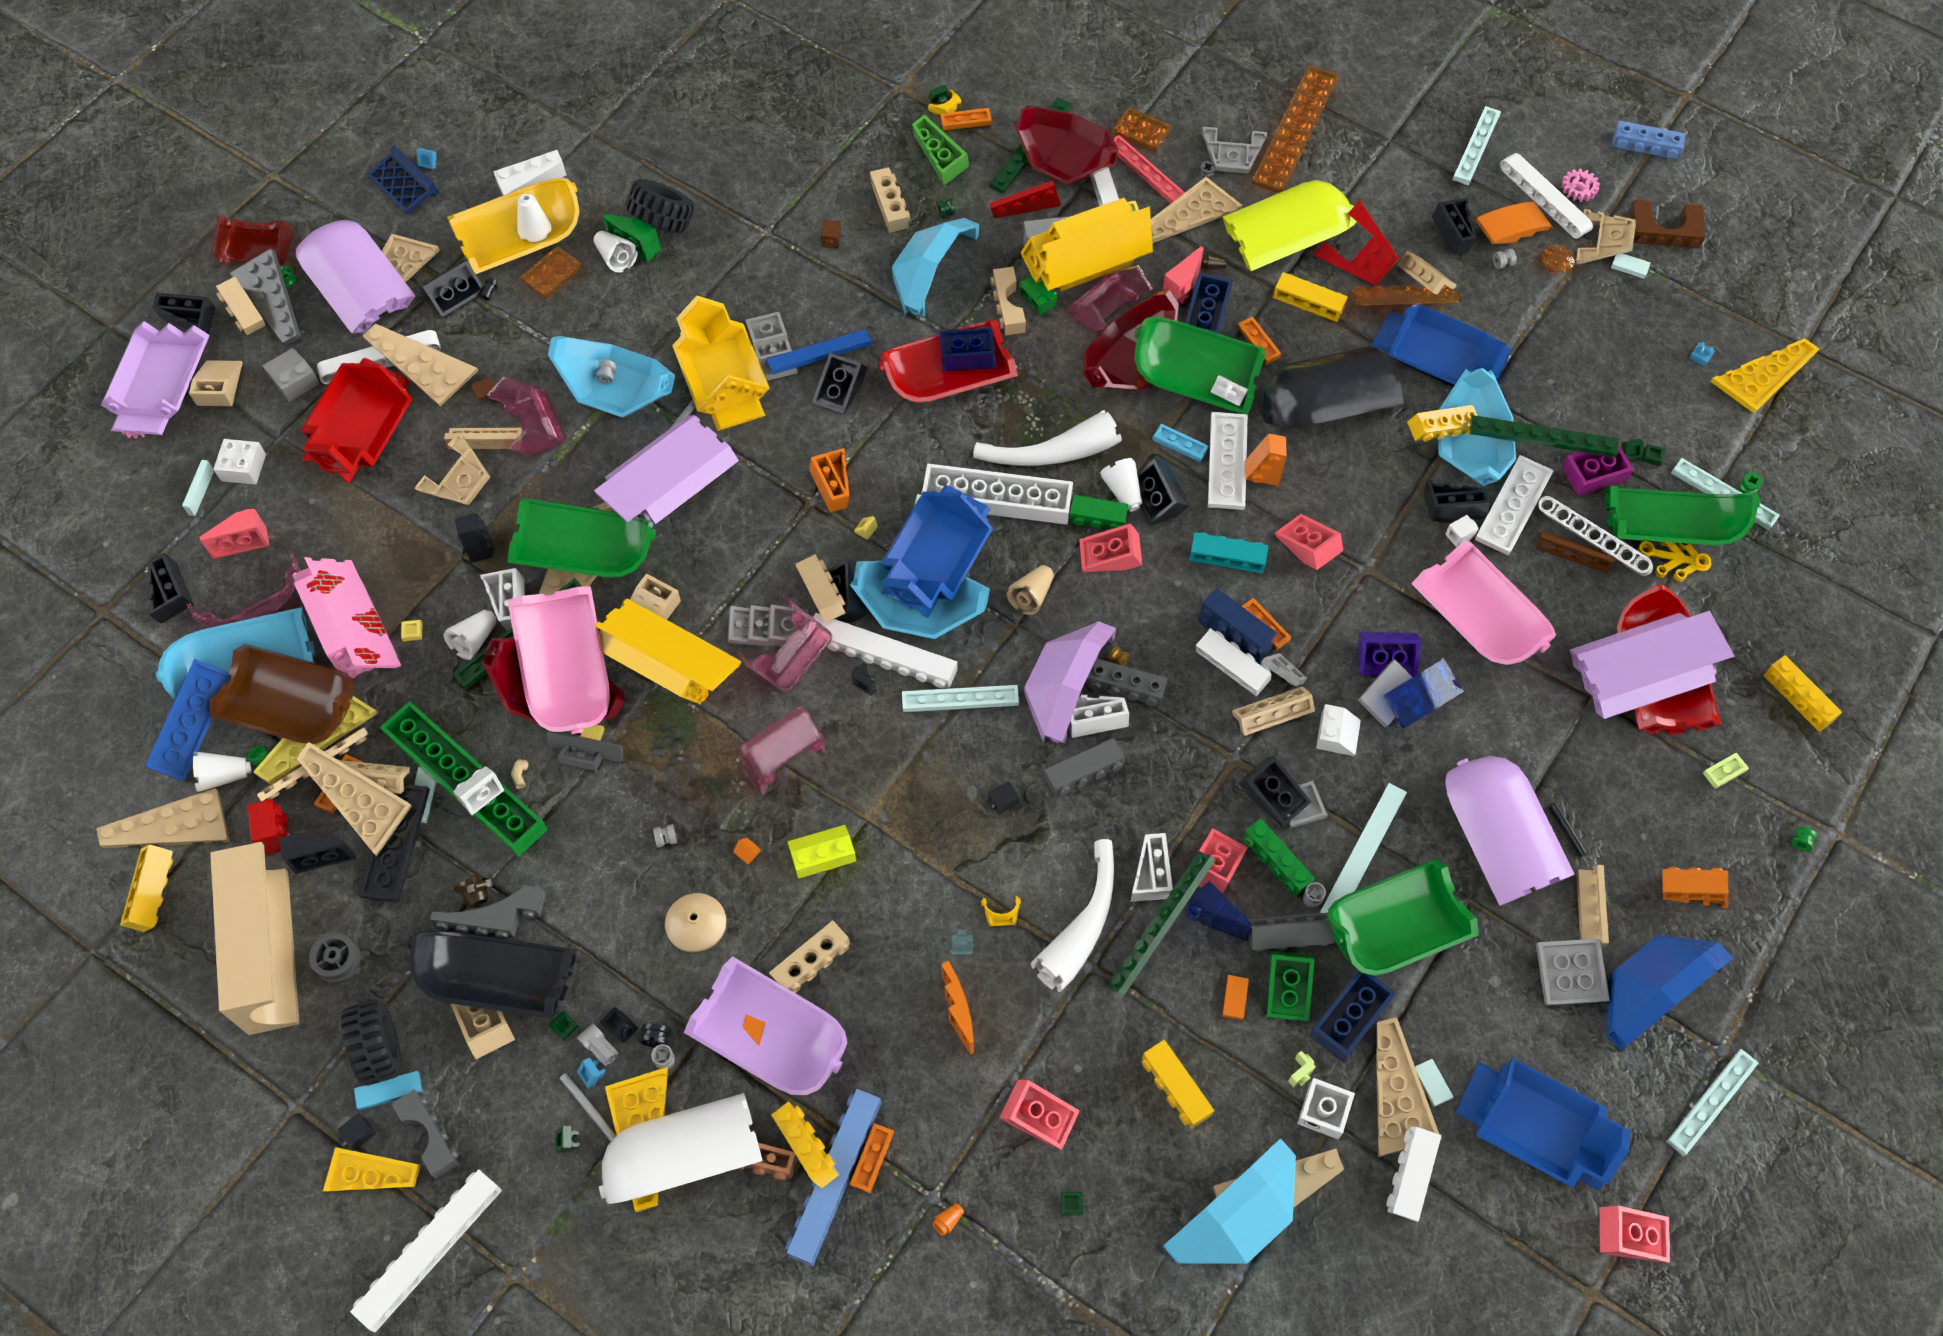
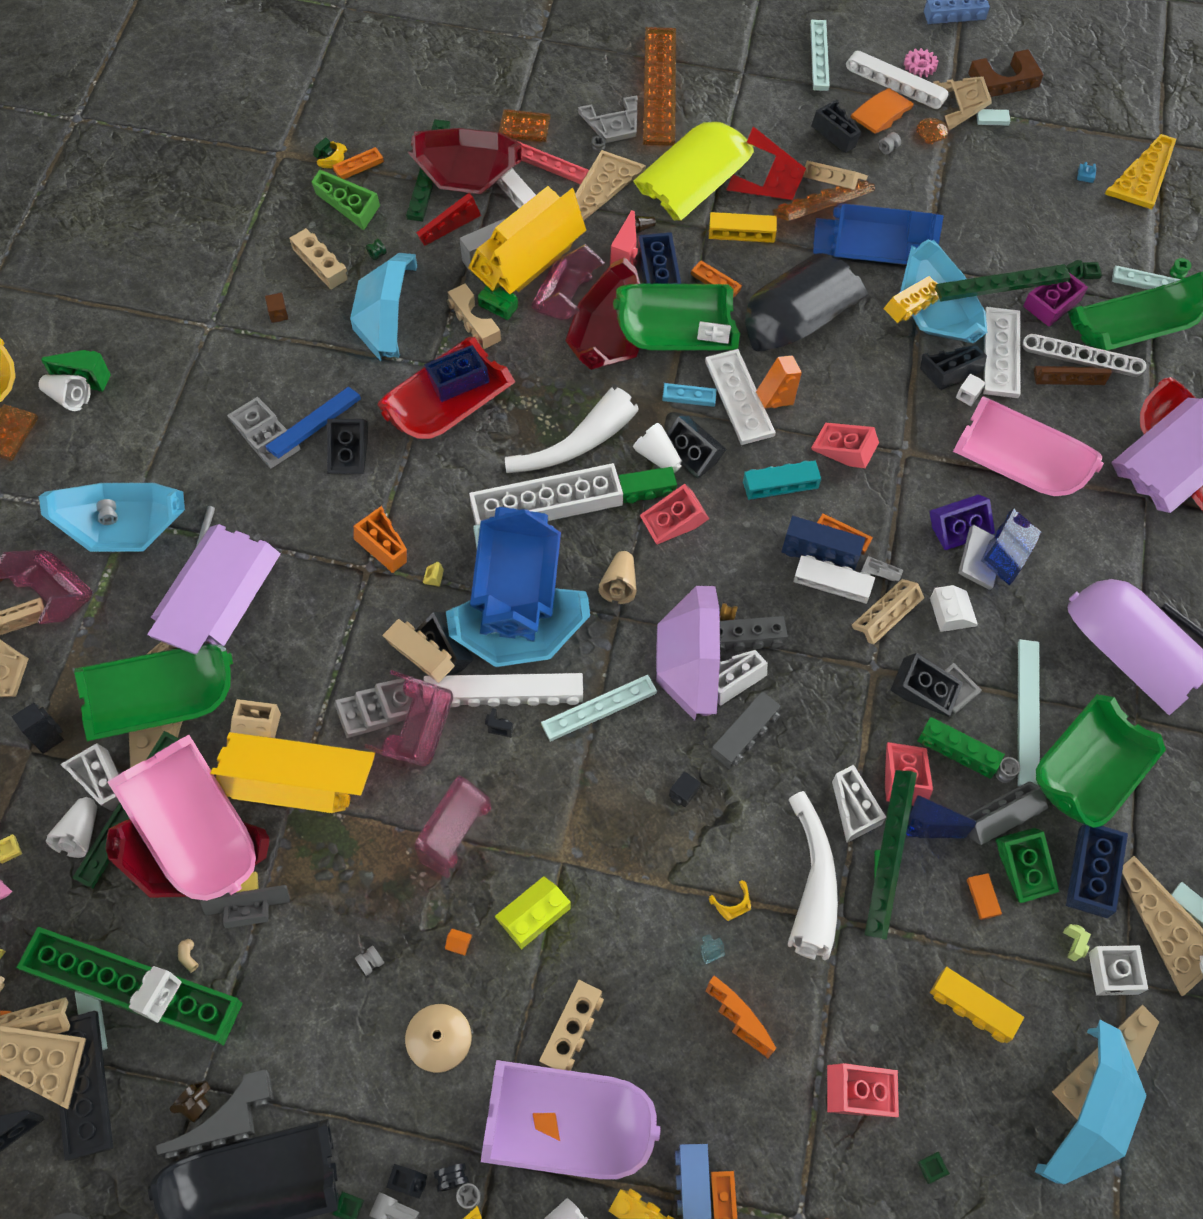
camera: 25 degrees left, 0 degrees up
(660, 206) = (95, 332): black tyre -> none
(719, 364) = (220, 466): yellow panel -> none
(1677, 558) = (1173, 349): yellow plant -> none

